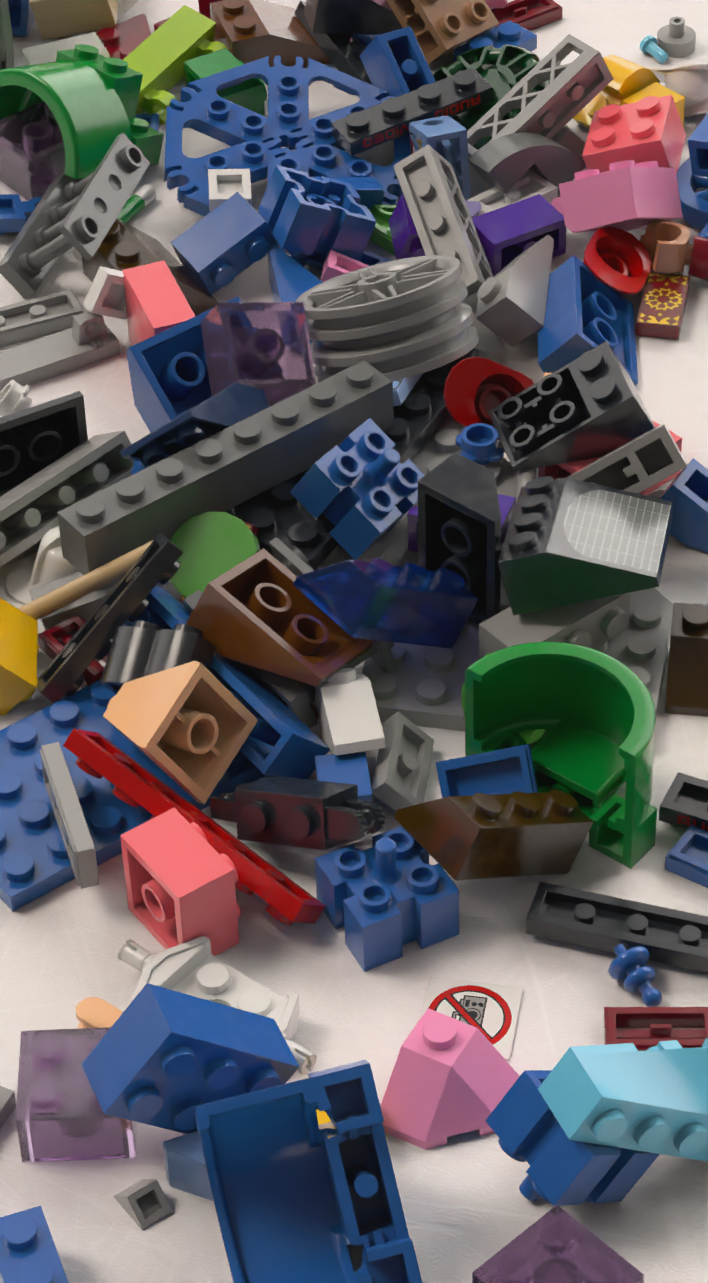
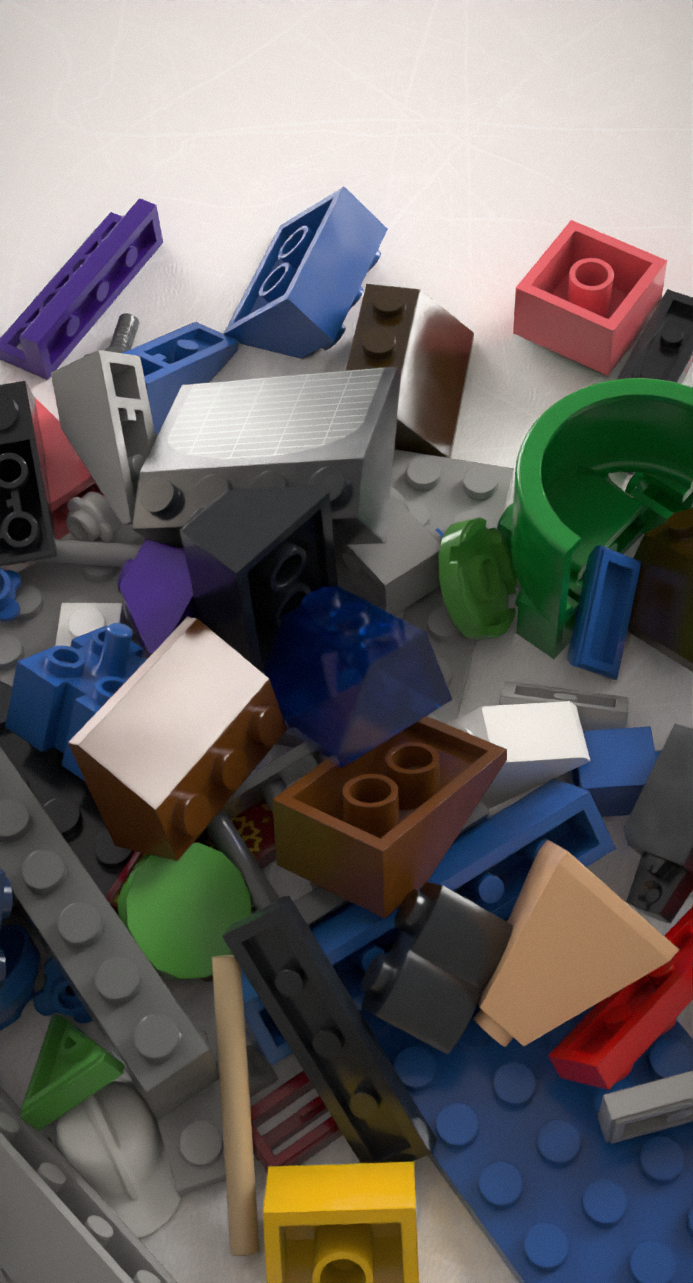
camera: 85 degrees left, 15 degrees up
(317, 504) = (177, 741): none -> slope

